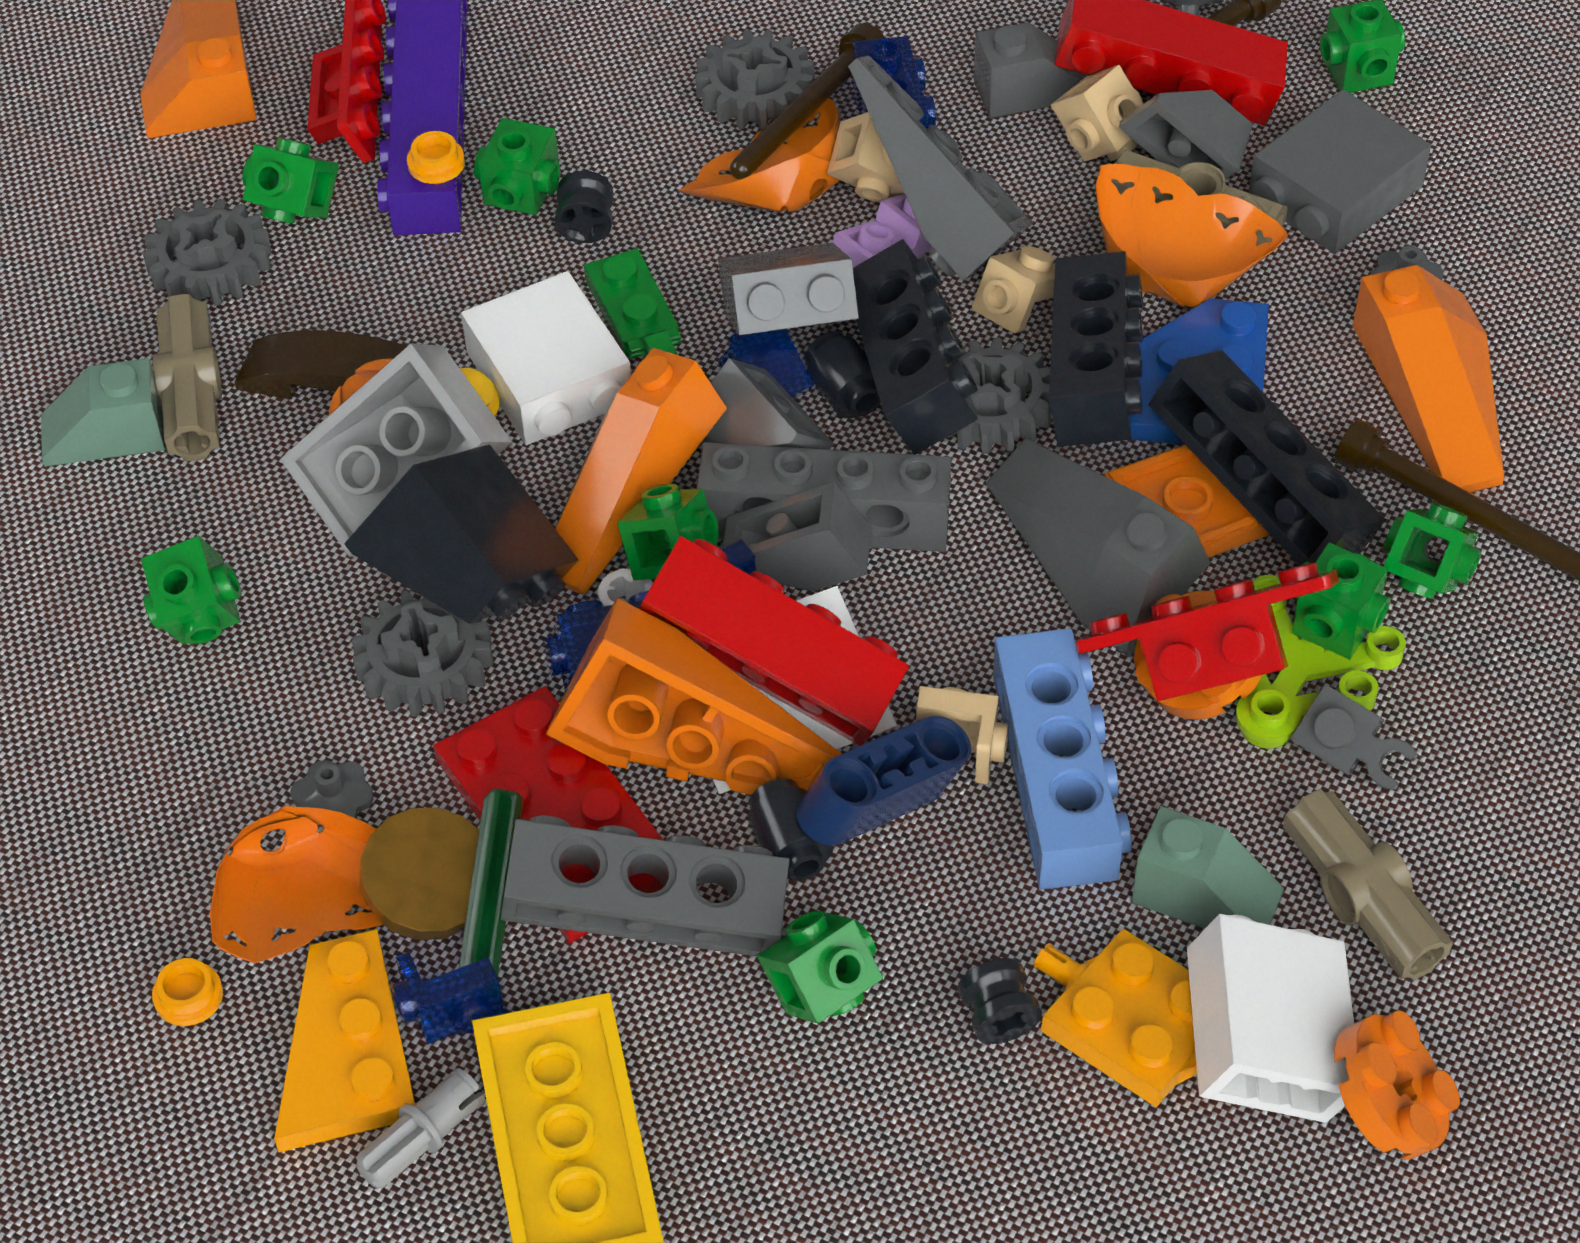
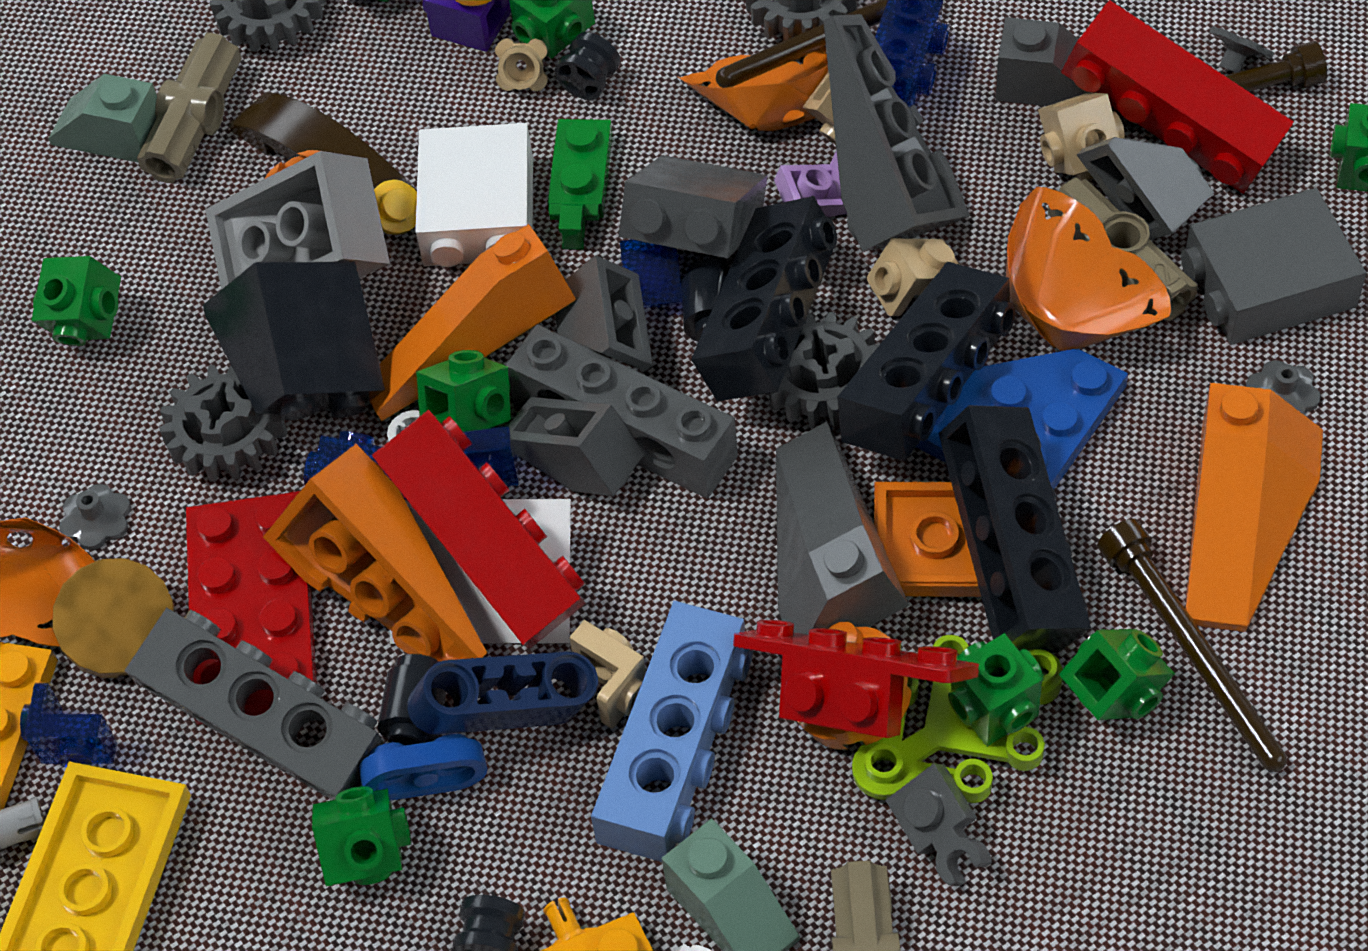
camera: 30 degrees right, 5 degrees up
(483, 926) = (122, 691): dark green axle -> none
(529, 234) = (512, 77): none -> tan plate
(843, 880) = (424, 768): none -> blue plate

